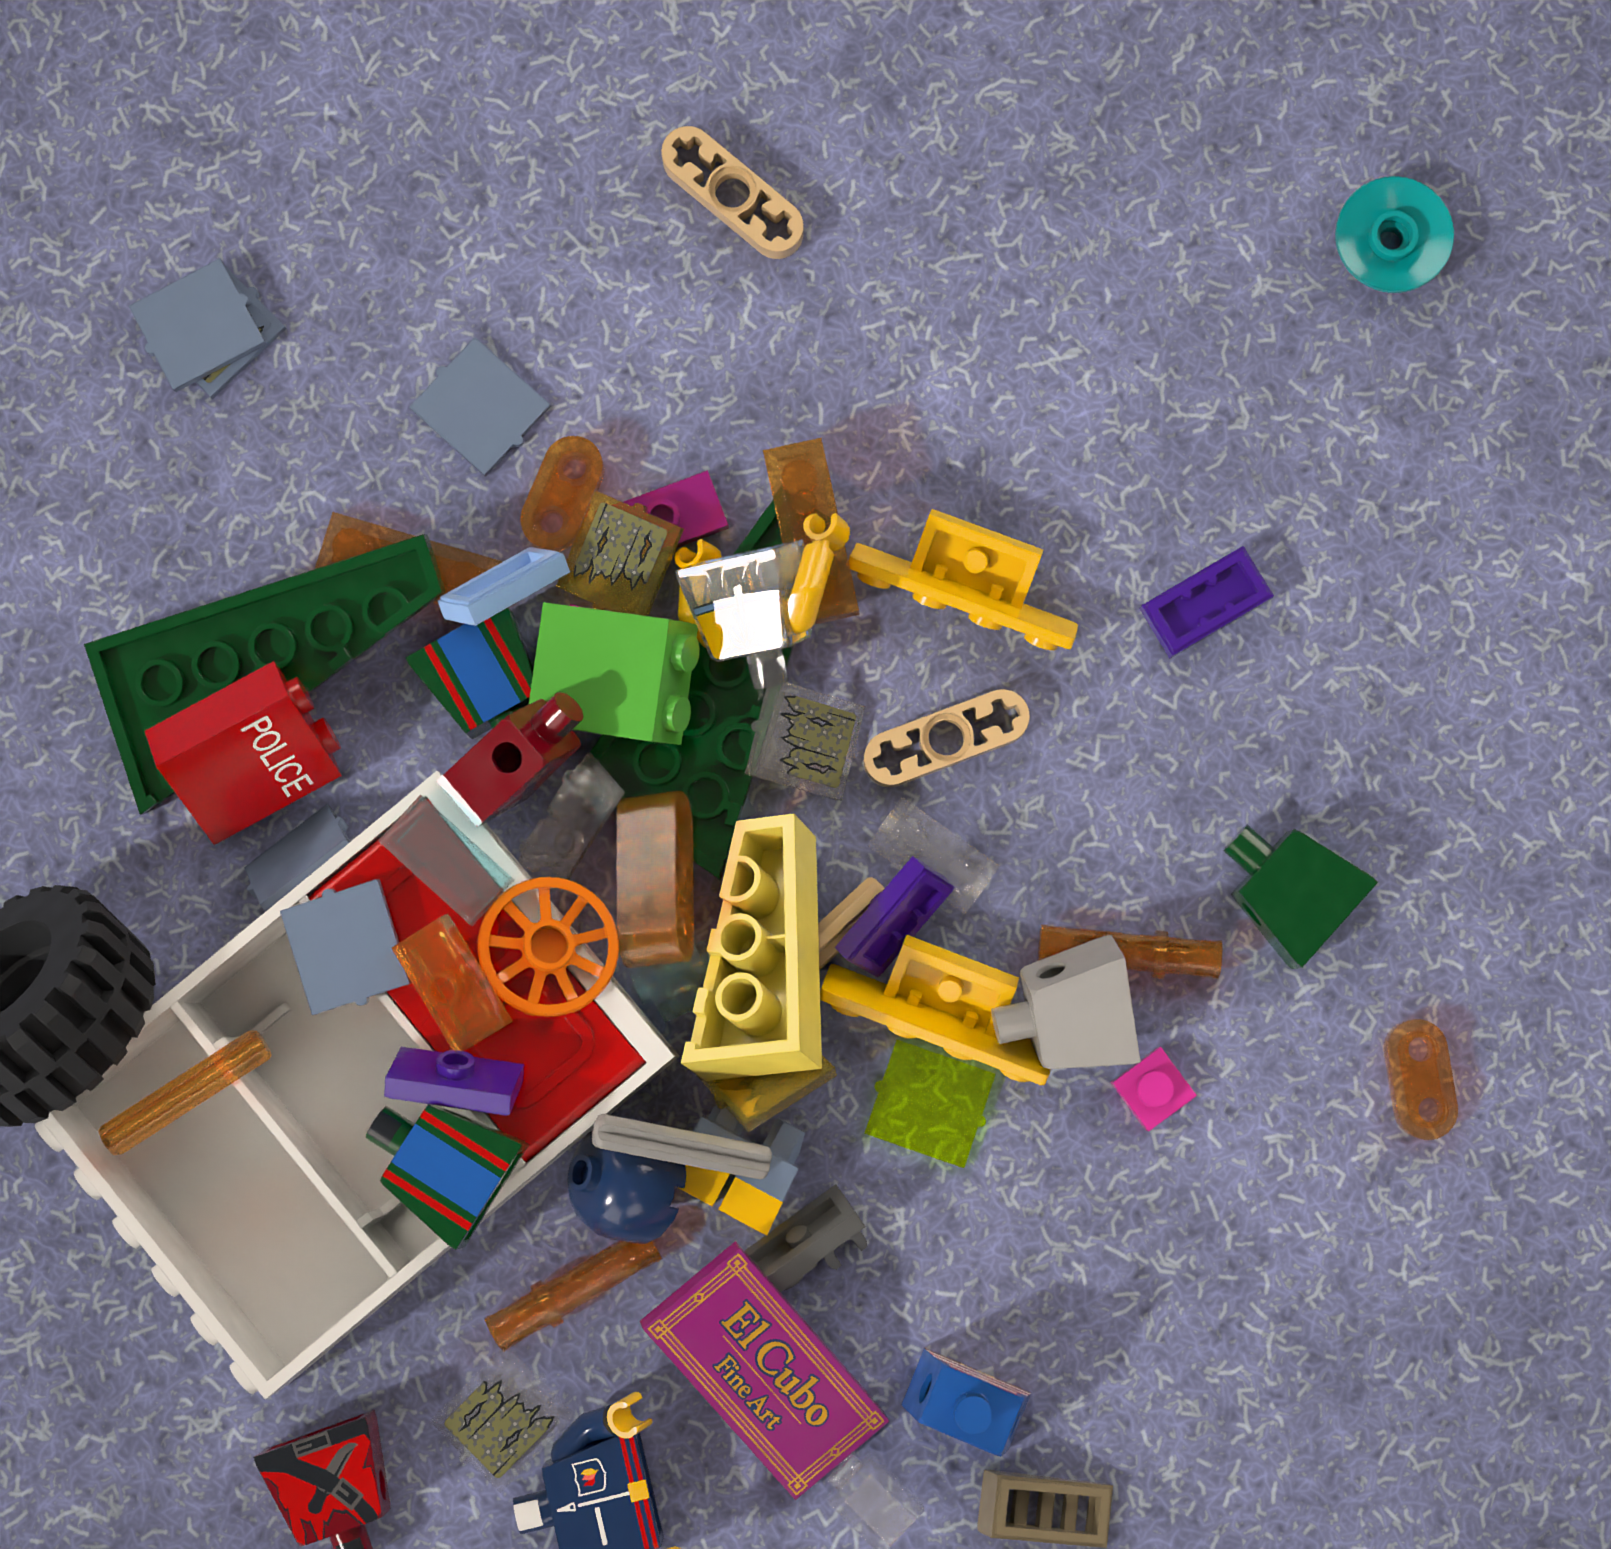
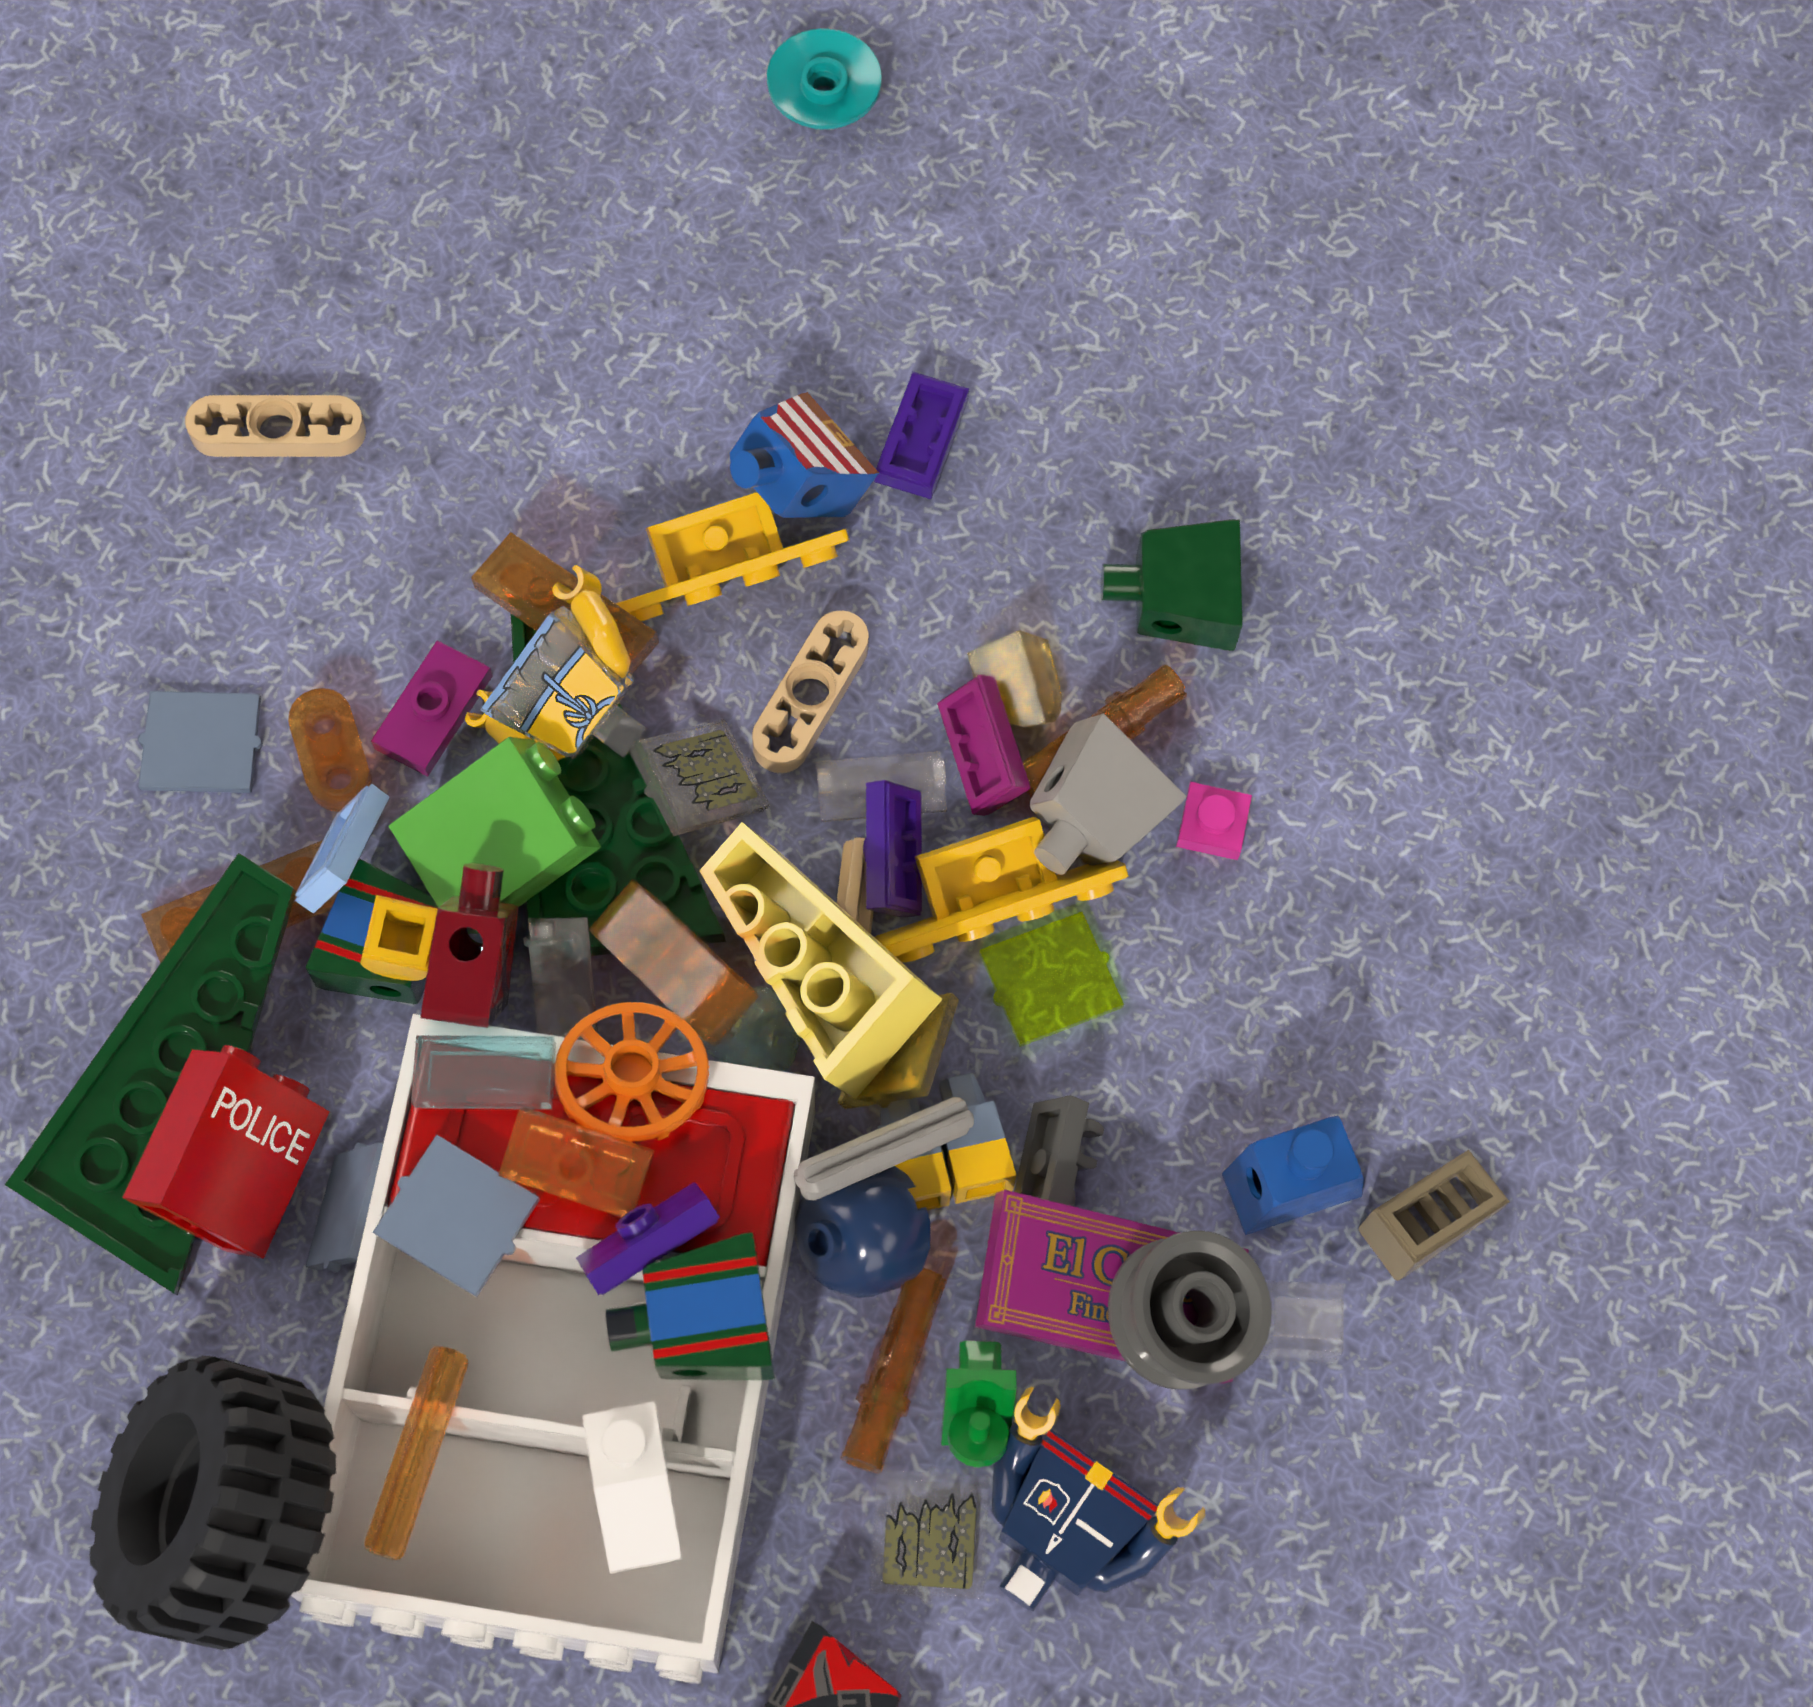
camera: 45 degrees left, 15 degrees down
(303, 1242) = (632, 1487): none -> white slope
(481, 698) = (399, 939): none -> yellow brick
(597, 1374) = (978, 1404): none -> green hips
(620, 556) = (416, 749): piece -> none
(789, 1402) = (1225, 1292): none -> dark grey wheel
(1033, 890) = (983, 745): none -> magenta plate
(1088, 554) = (801, 461): none -> blue torso
(1103, 863) = (1023, 676): none -> clear yellow brick
(1416, 1080) = (1401, 650): clear orange plate -> none

